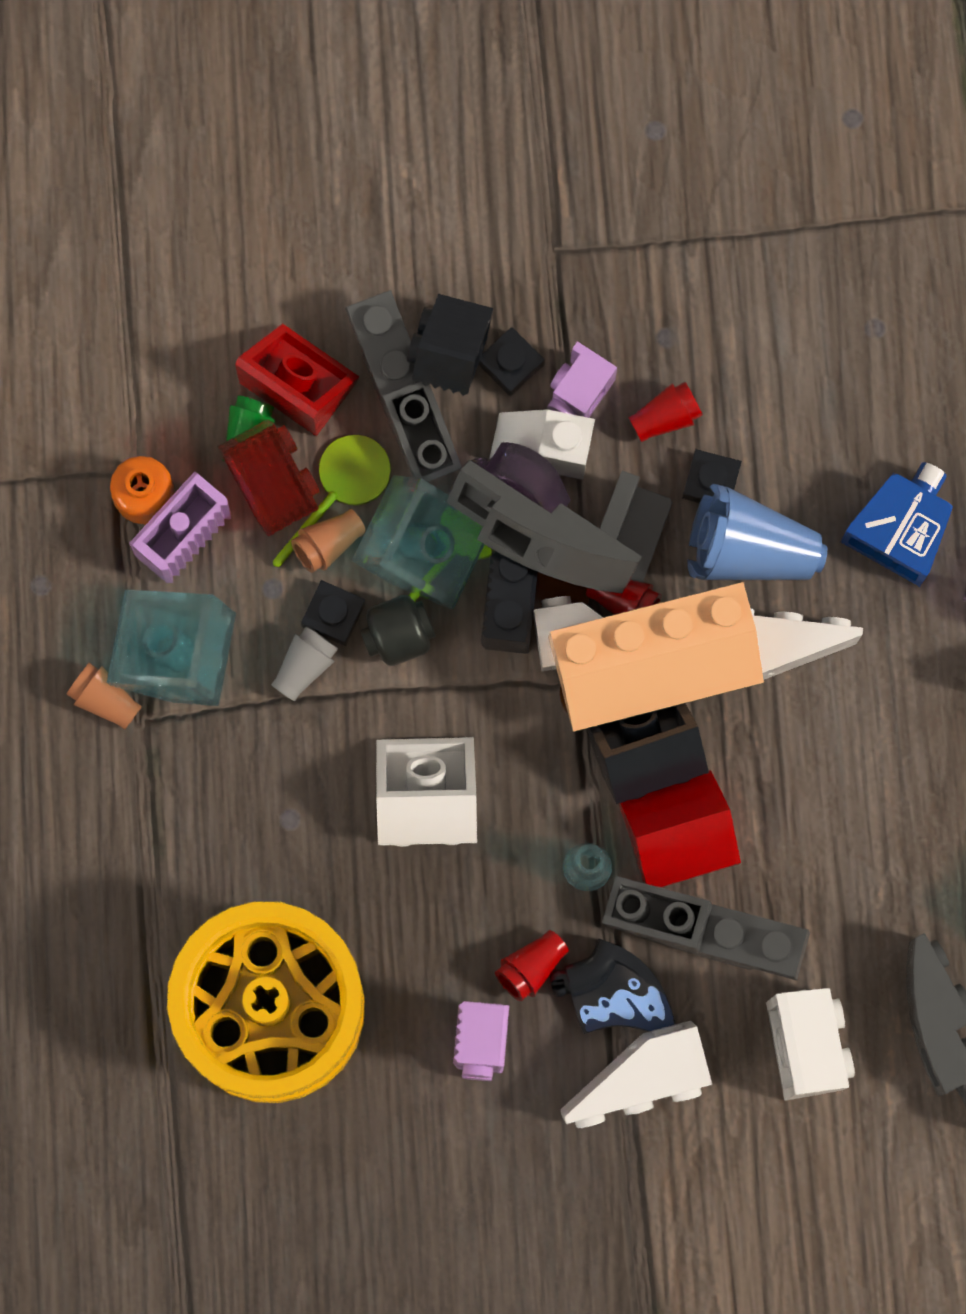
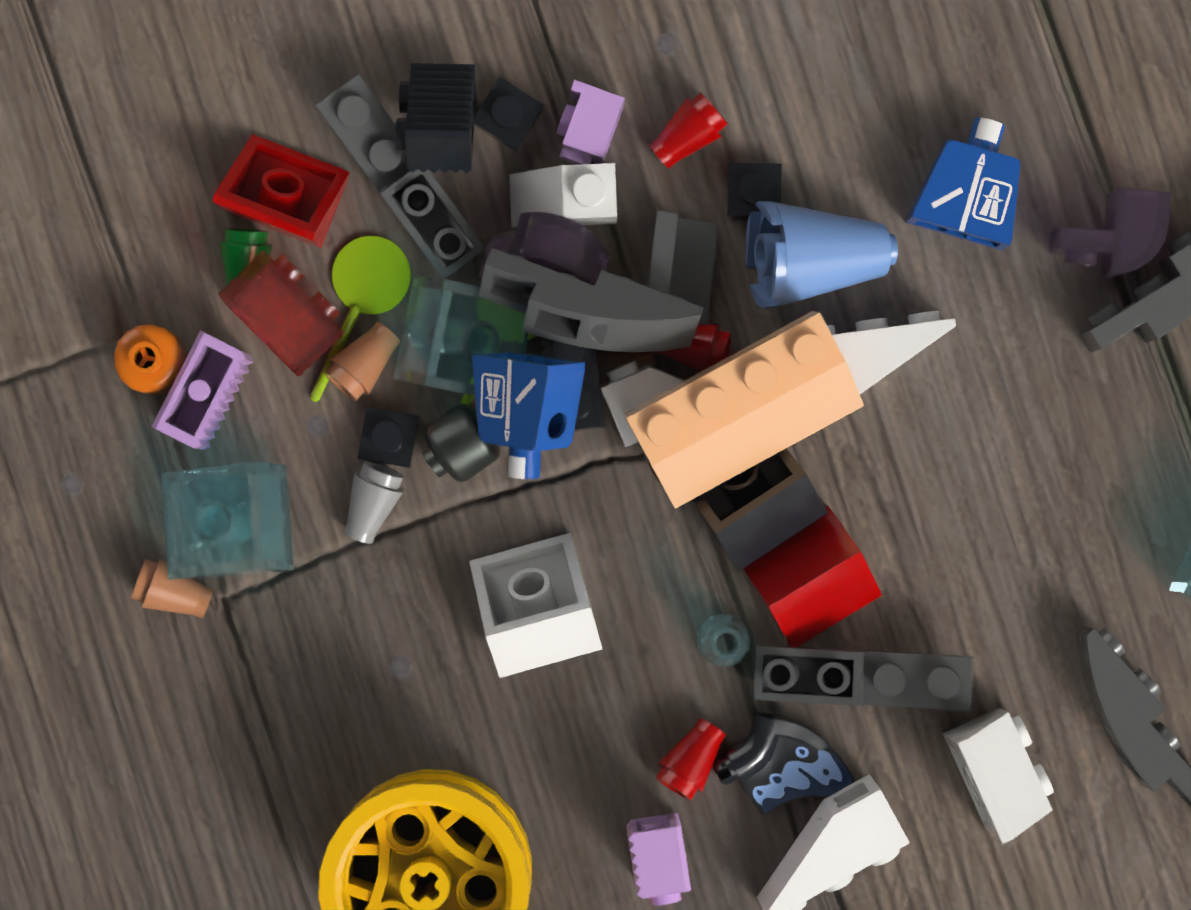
camera: 10 degrees left, 10 degrees up
(464, 605) = (526, 405): none -> blue torso

